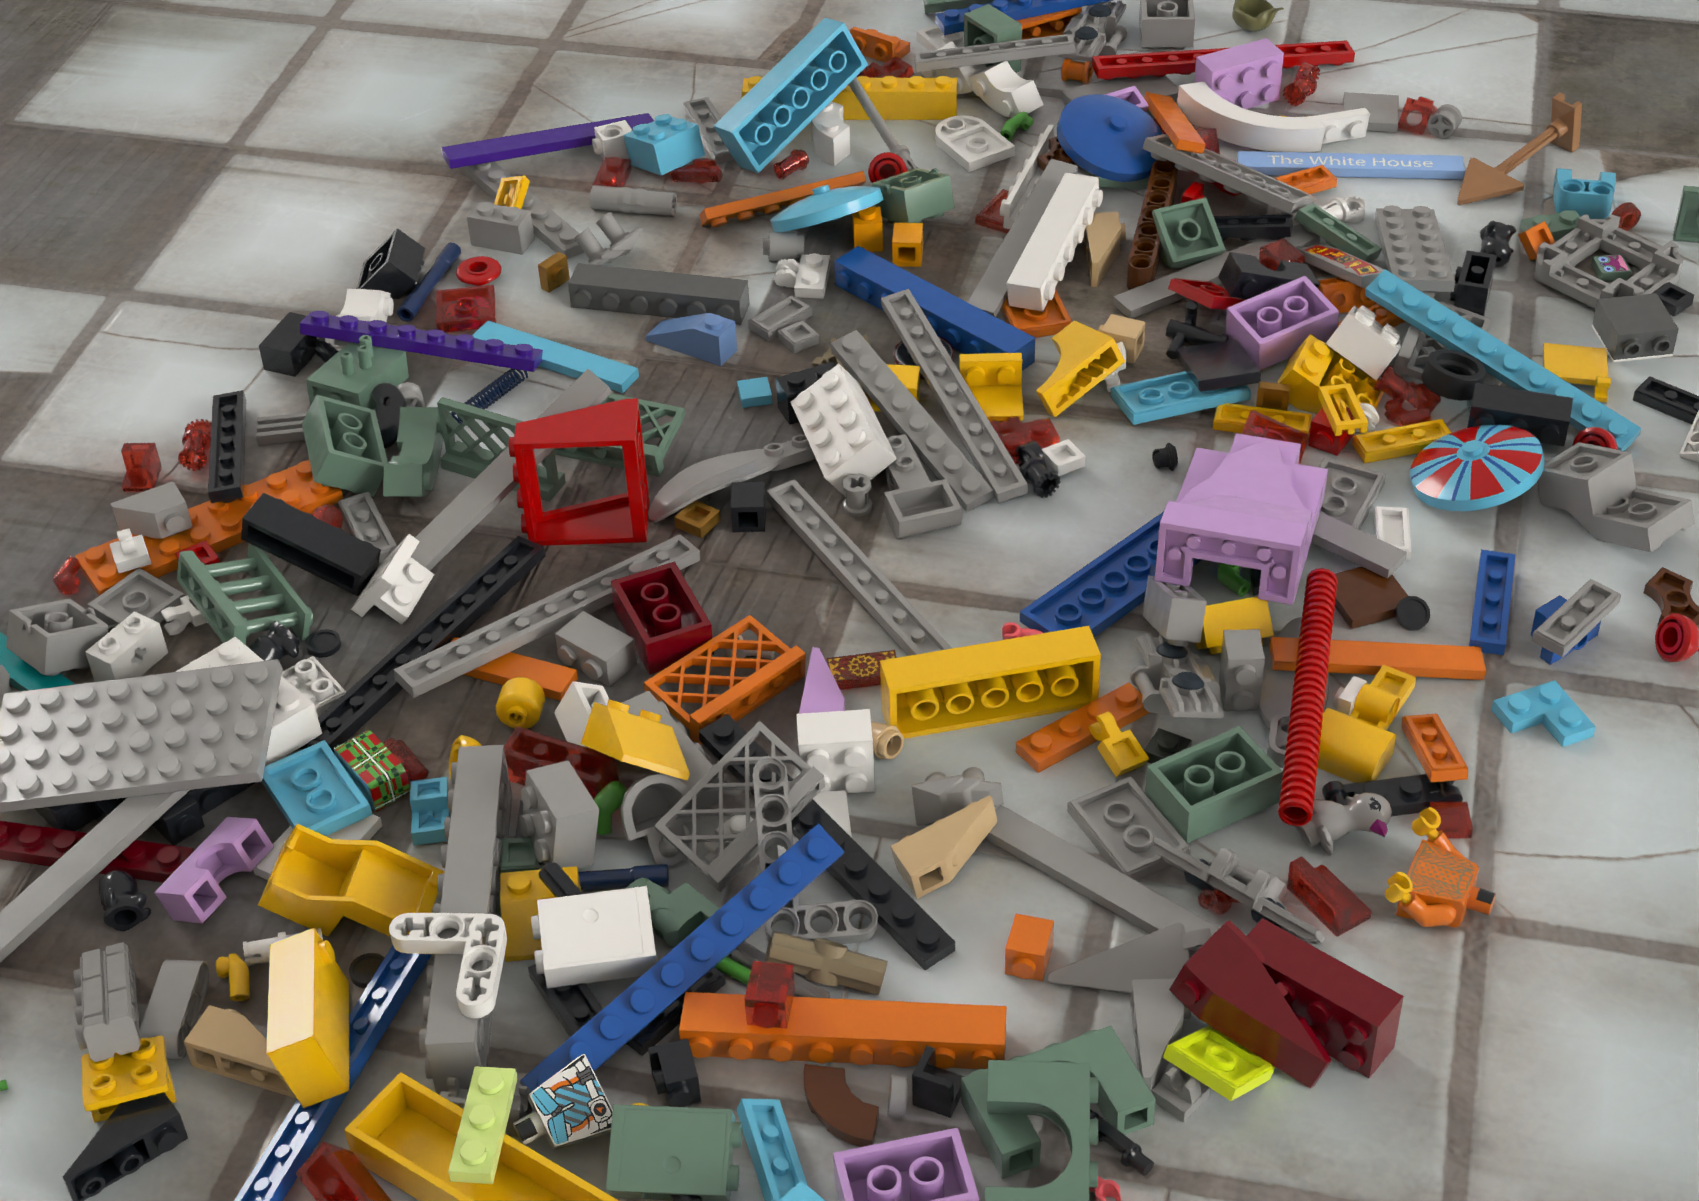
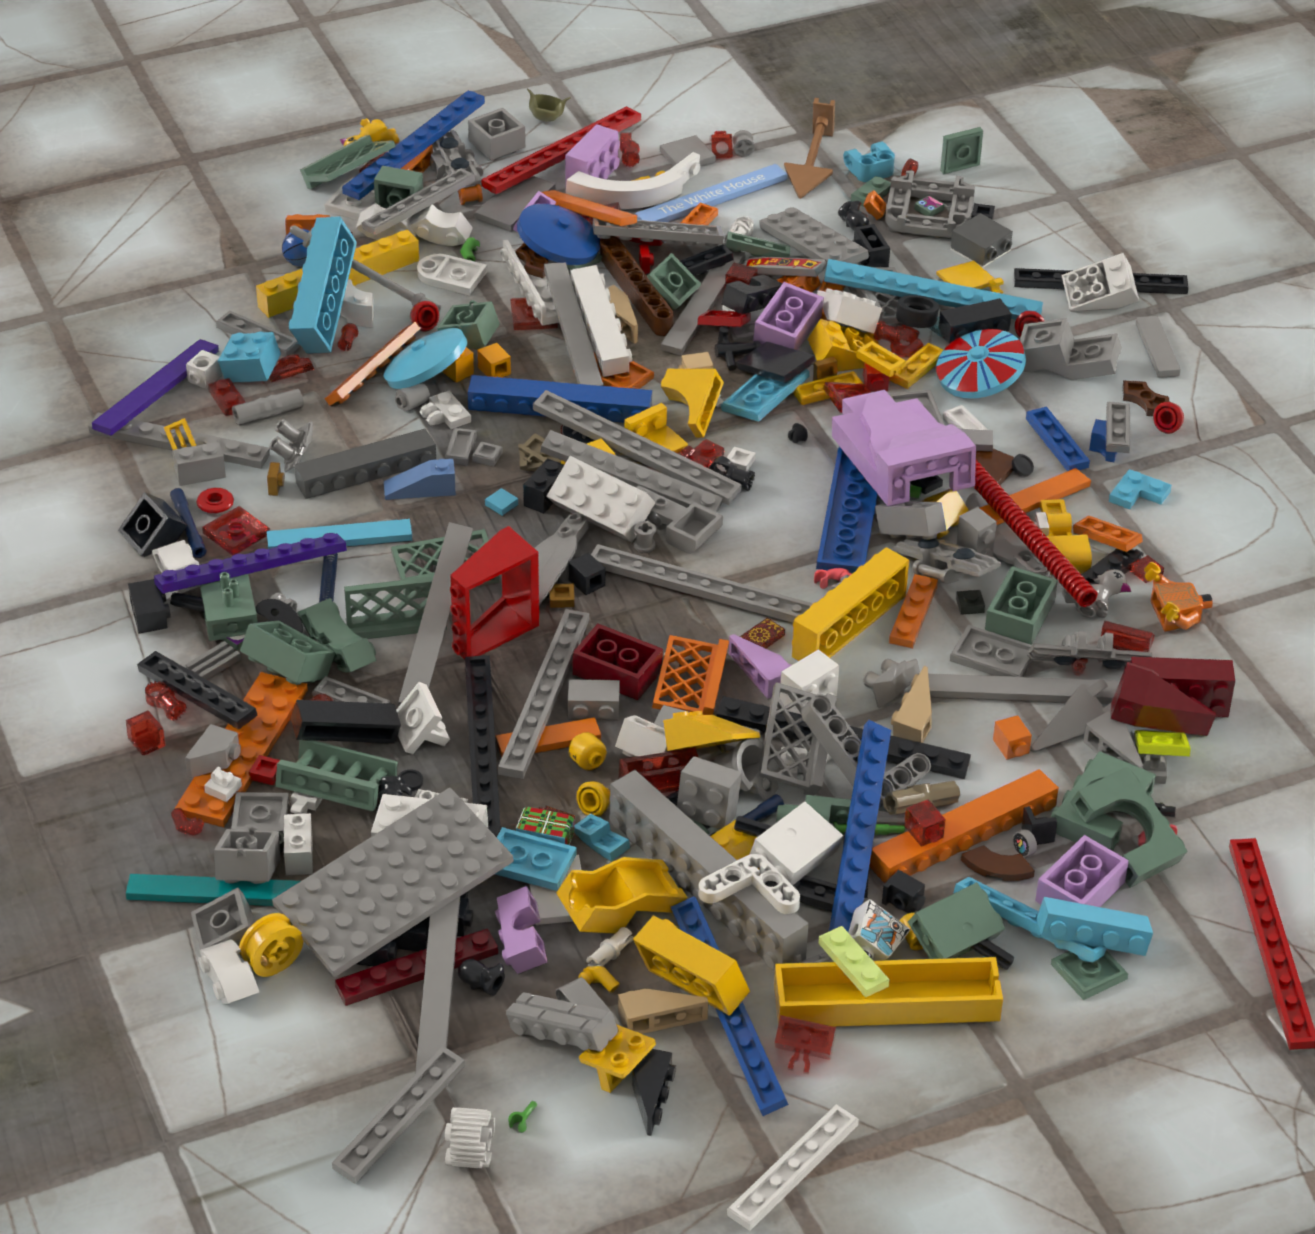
camera: 40 degrees left, 0 degrees up
(1117, 748) = (948, 610): yellow plate -> none

